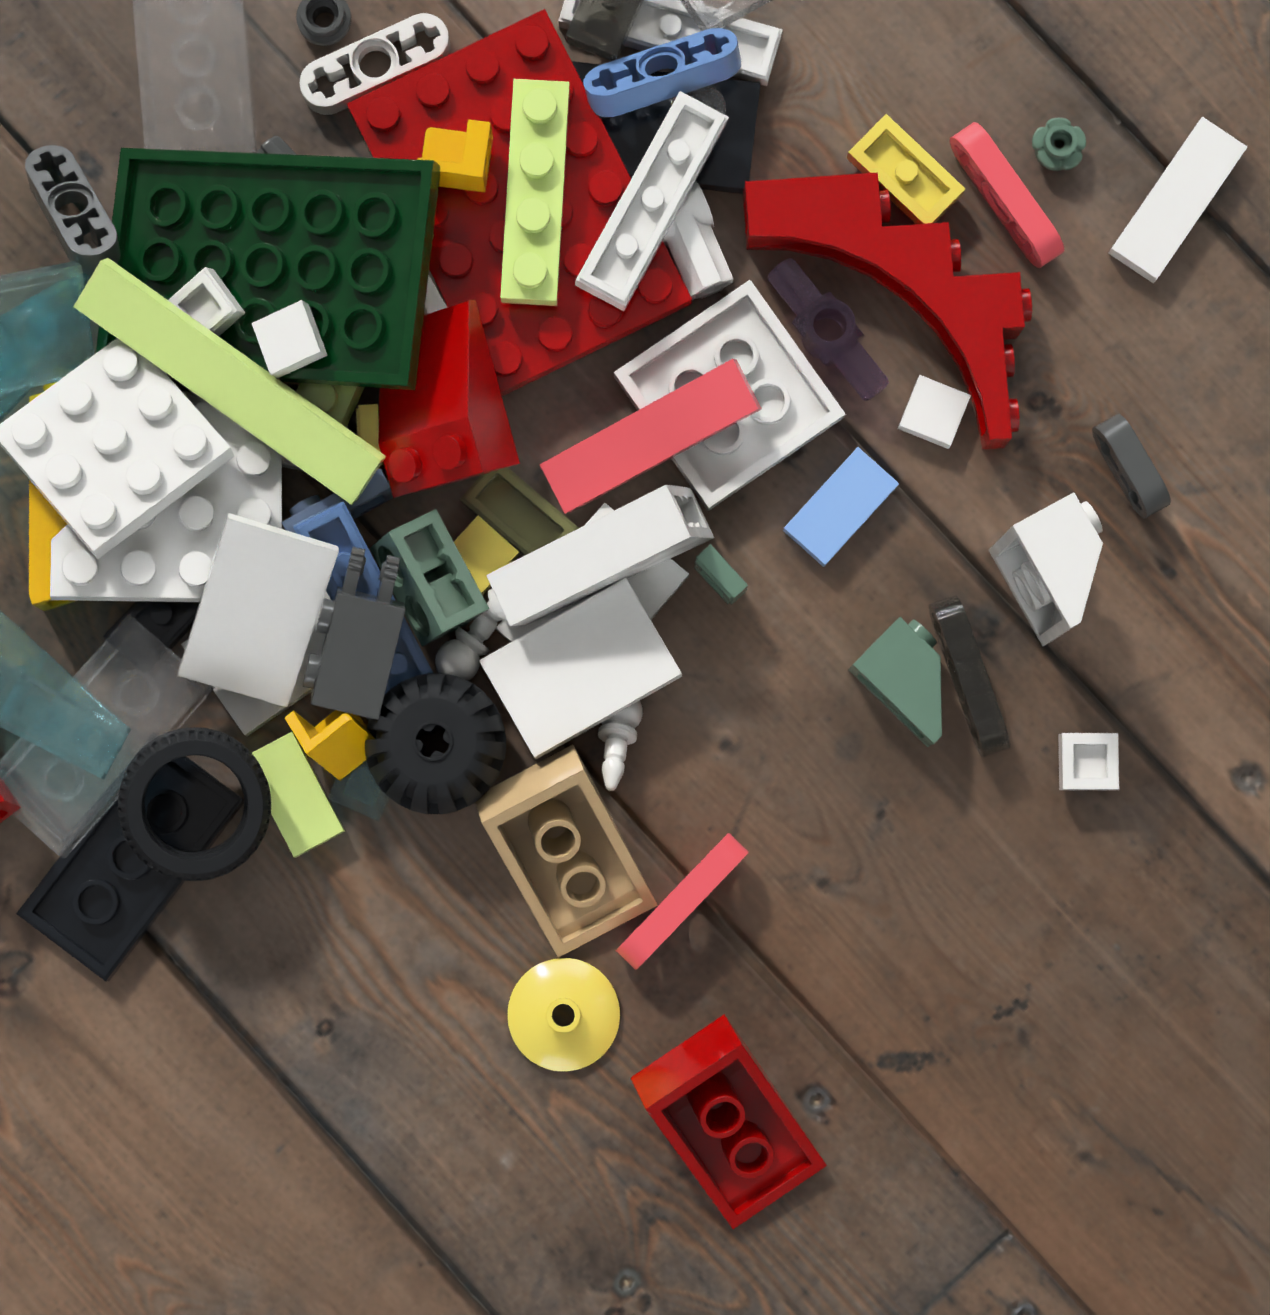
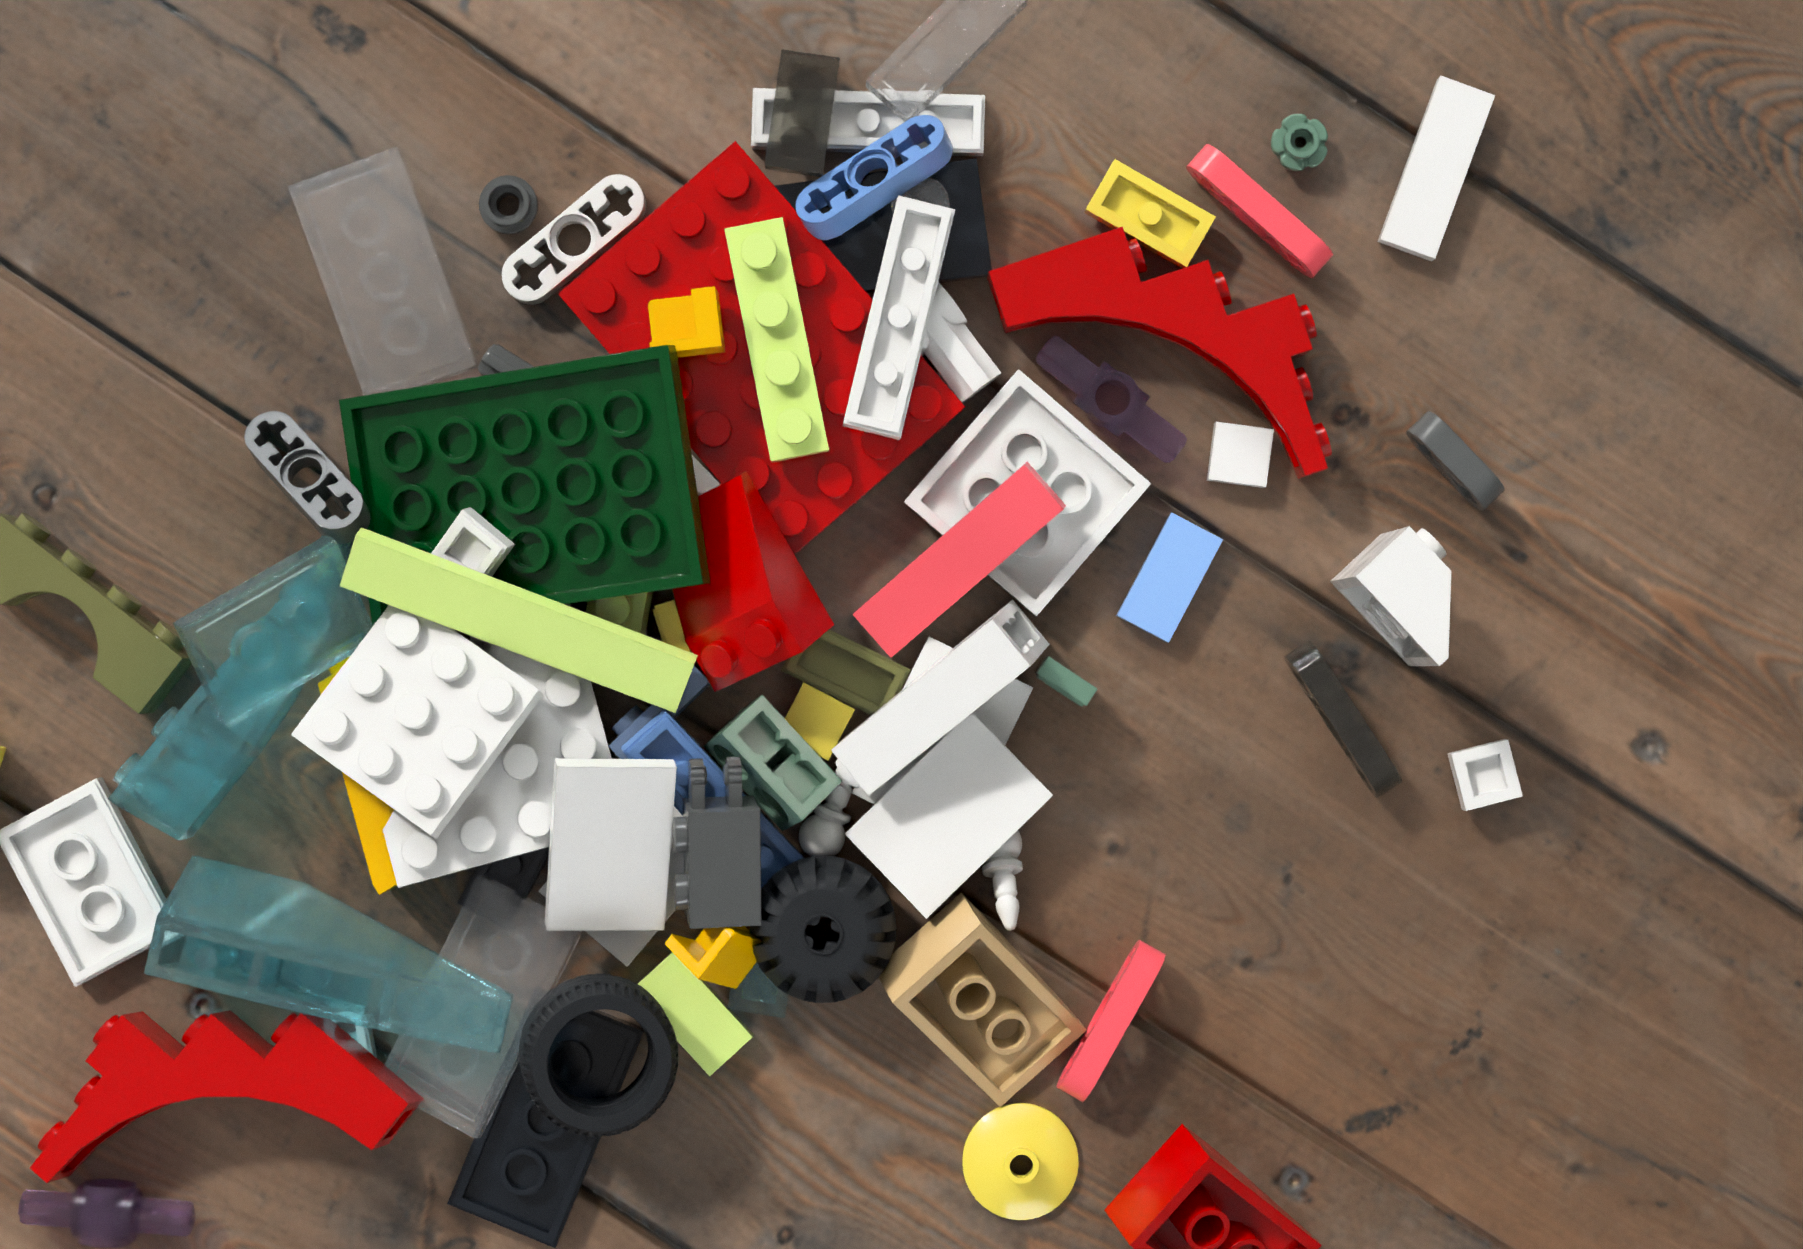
camera: 15 degrees left, 5 degrees up
(289, 339) = (569, 564): white tile -> none
(905, 677) = (1279, 736): sand green slope -> none

